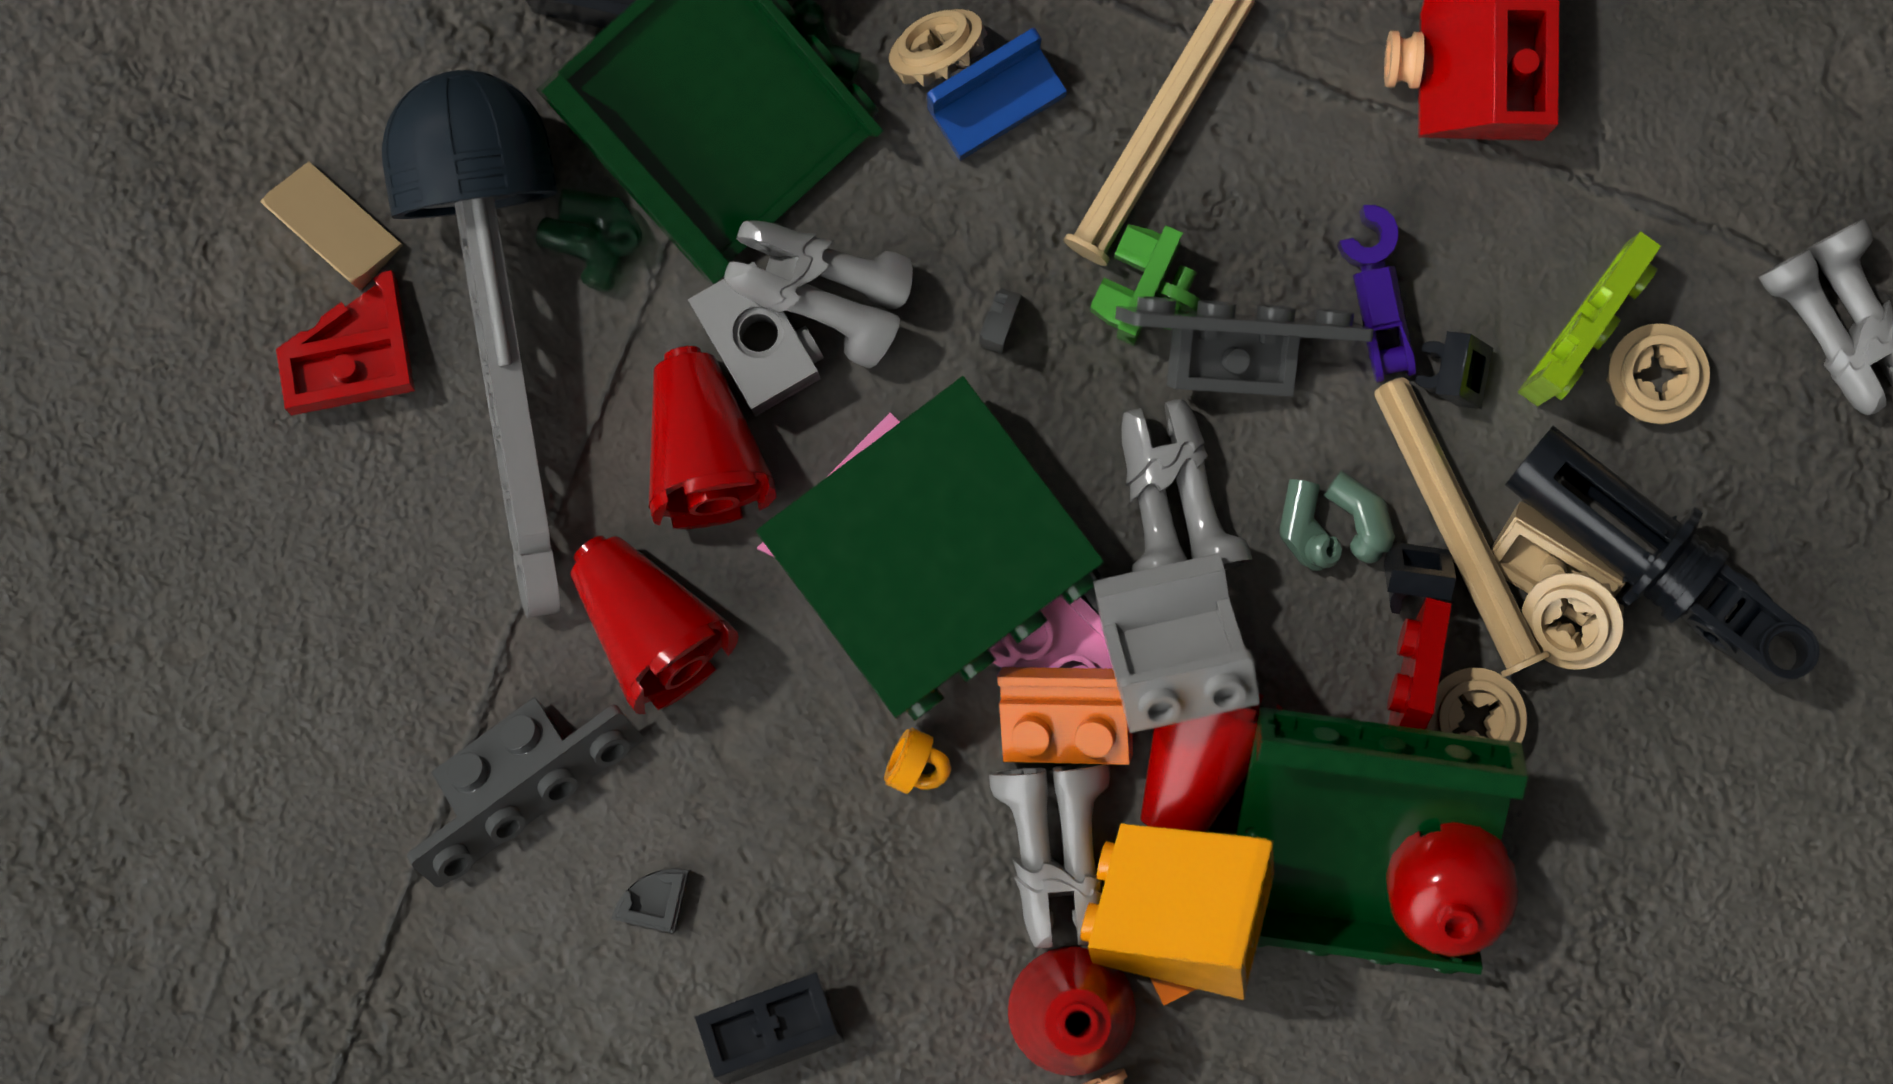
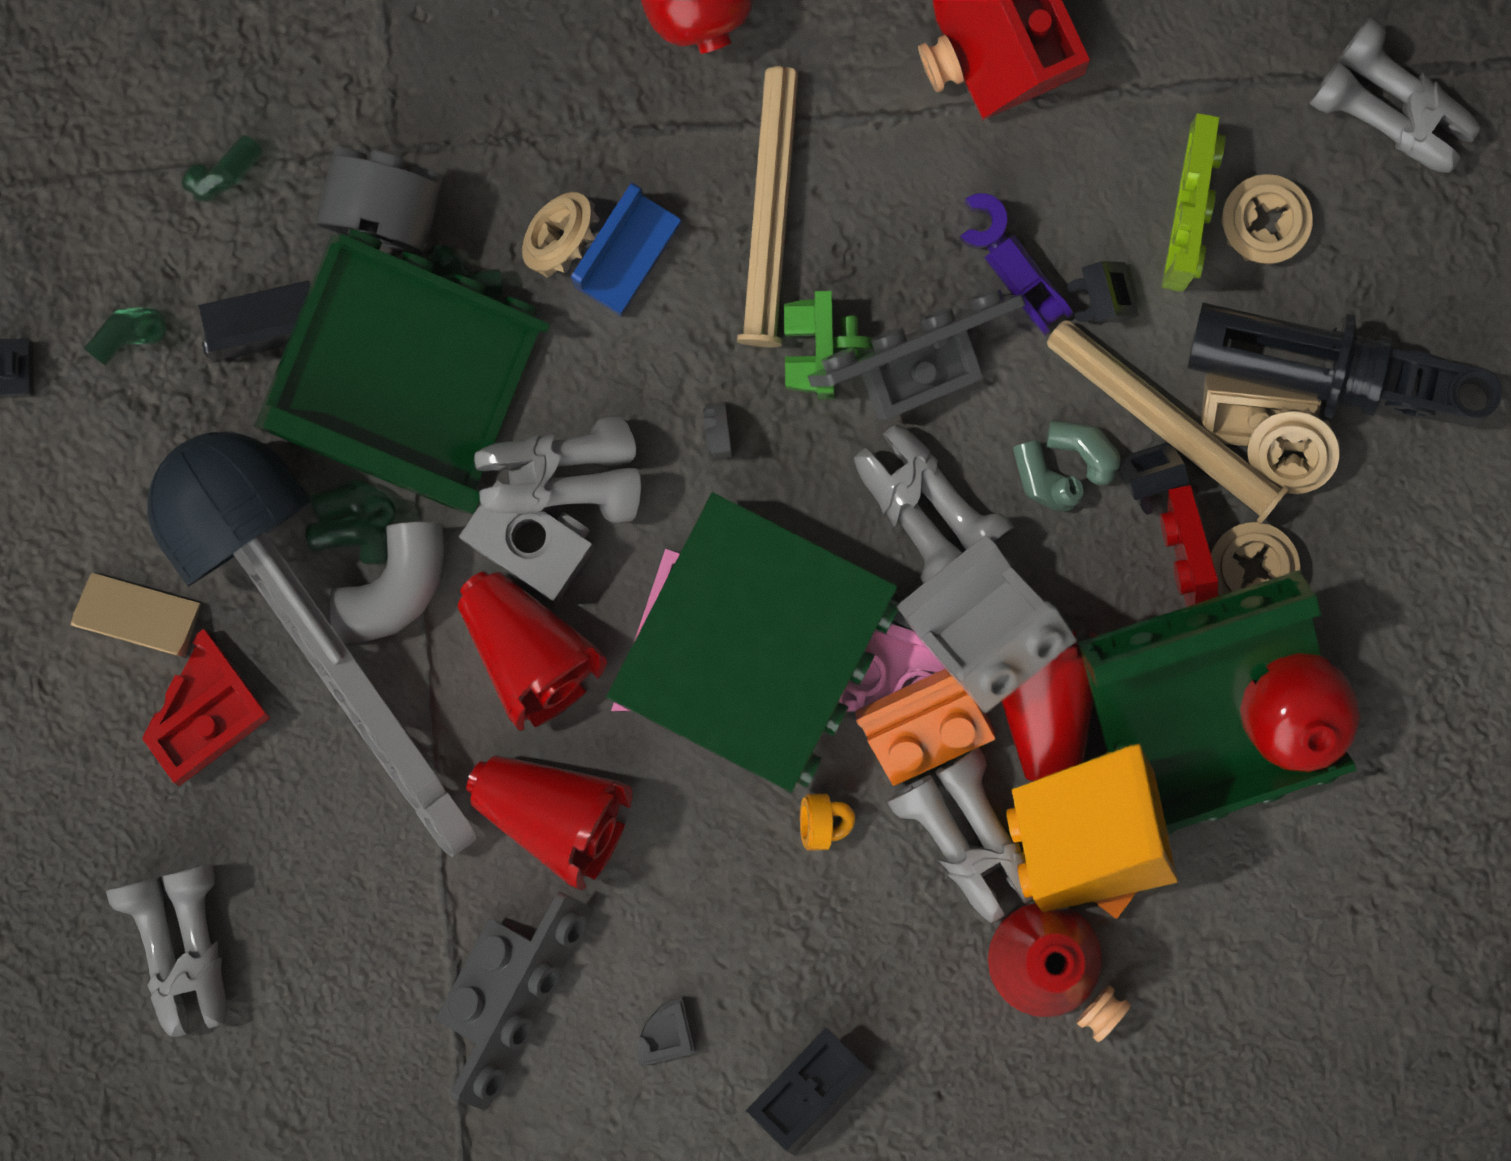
camera: 25 degrees left, 0 degrees up
(216, 605) = (199, 965): none -> light grey piece
(604, 327) = (401, 590): none -> light grey cylinder

